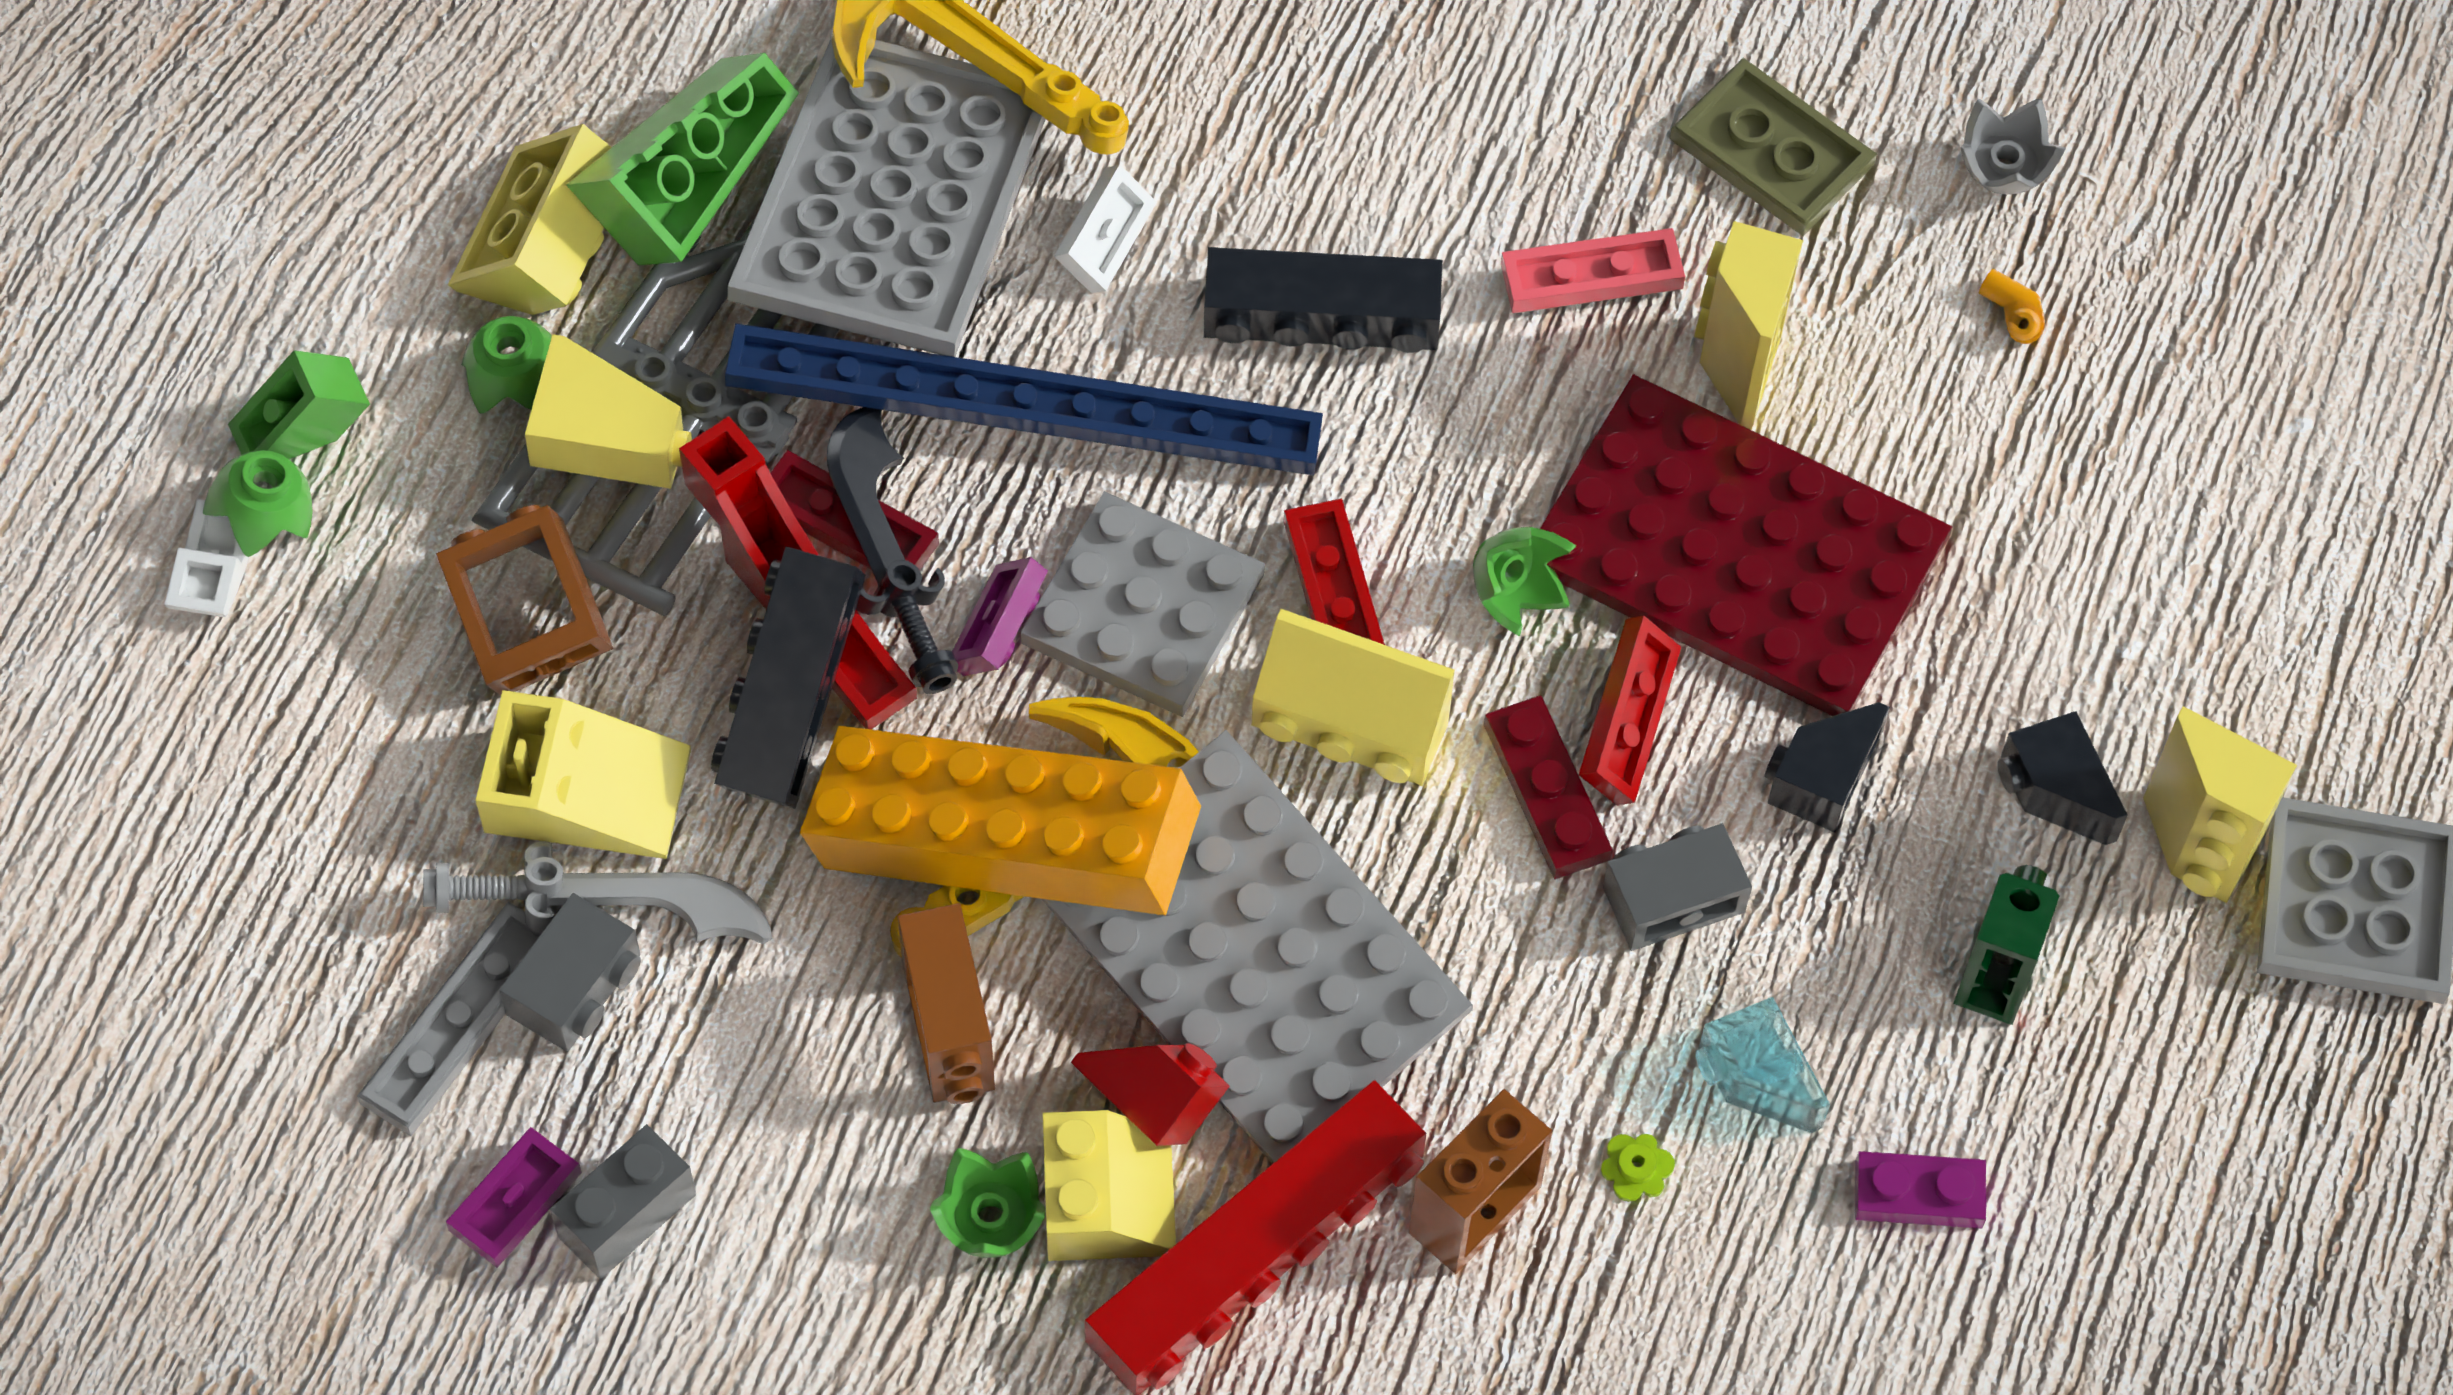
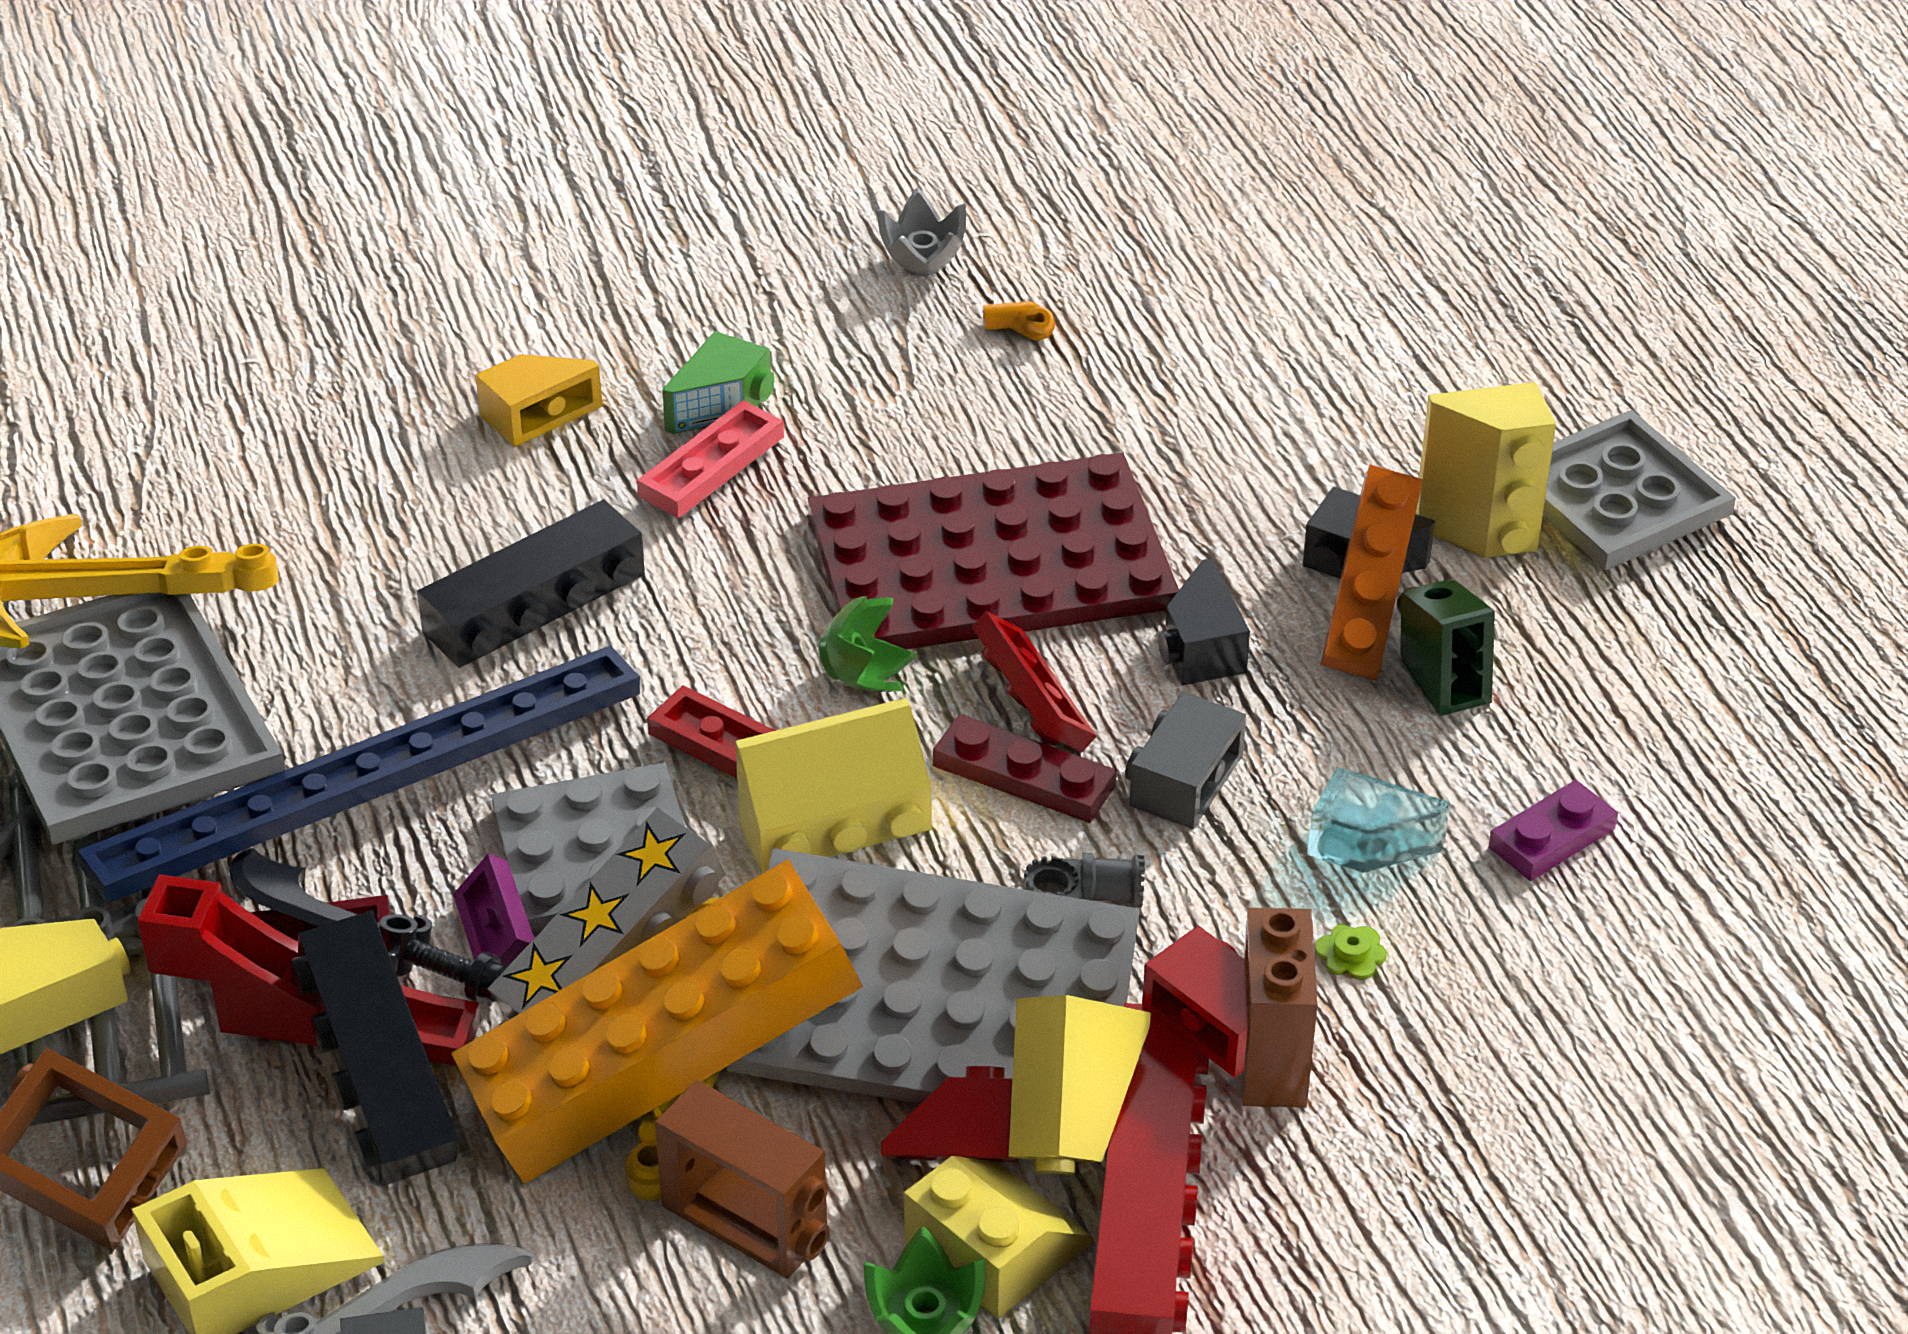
camera: 40 degrees left, 20 degrees down
(1059, 697) = (631, 898): none -> light grey brick
(1105, 229) = (315, 638): white plate -> none
(1251, 1118) = (1070, 1078): none -> light yellow slope
(1421, 1118) = (1201, 996): none -> red slope
(1481, 940) = (1091, 877): none -> dark grey connector
(1508, 93) = (537, 394): none -> yellow slope
(1670, 190) = (716, 381): none -> bright green slope
(1745, 313) = (867, 396): light yellow slope -> none
(1773, 146) = (787, 321): olive tile -> none
(2017, 824) = (1371, 572): none -> orange plate

